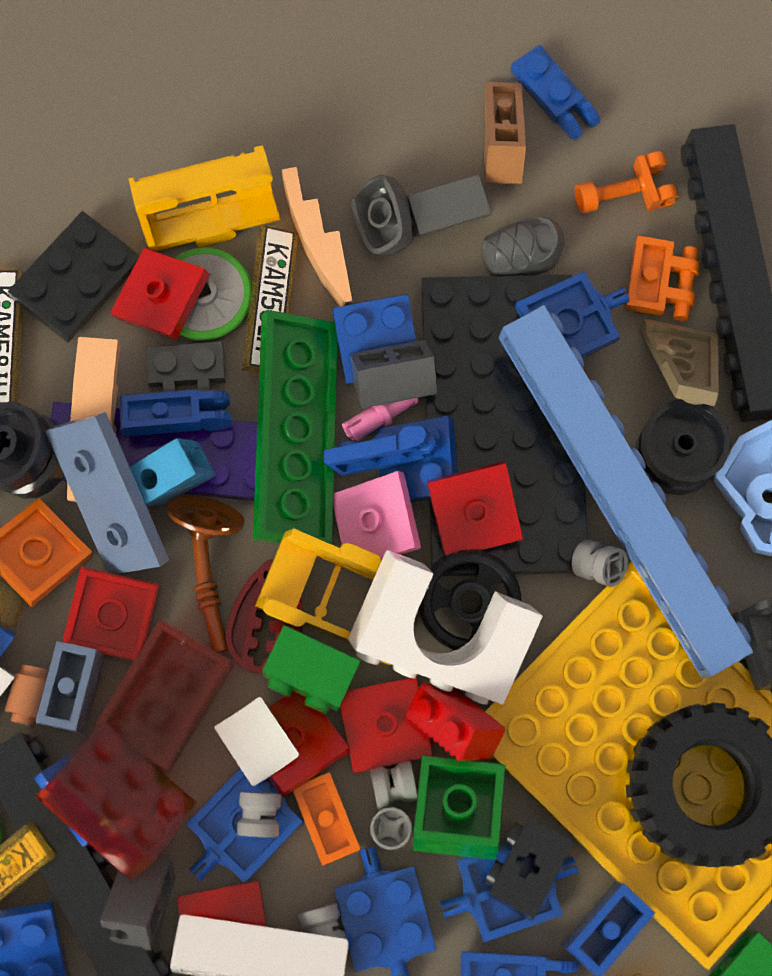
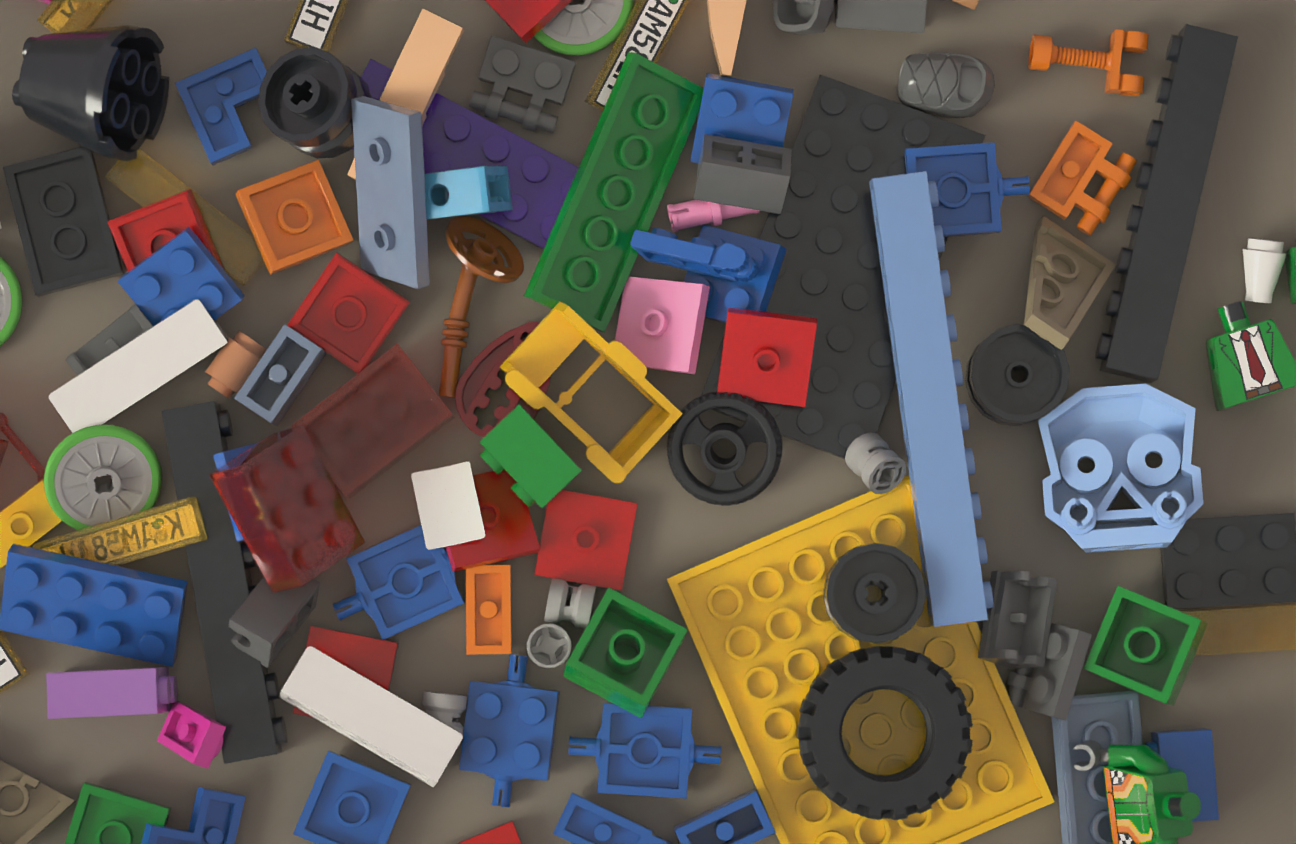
camera: 20 degrees right, 10 degrees up
(174, 412) = (492, 124): blue hinge -> none
(259, 814) = (423, 579): light grey wheel -> none
(455, 723) = (656, 567): red brick -> none
(480, 667) = (703, 522): white arch -> none
(528, 893) = (695, 734): black brick -> none
(672, 666) = (900, 588): none -> black wheel

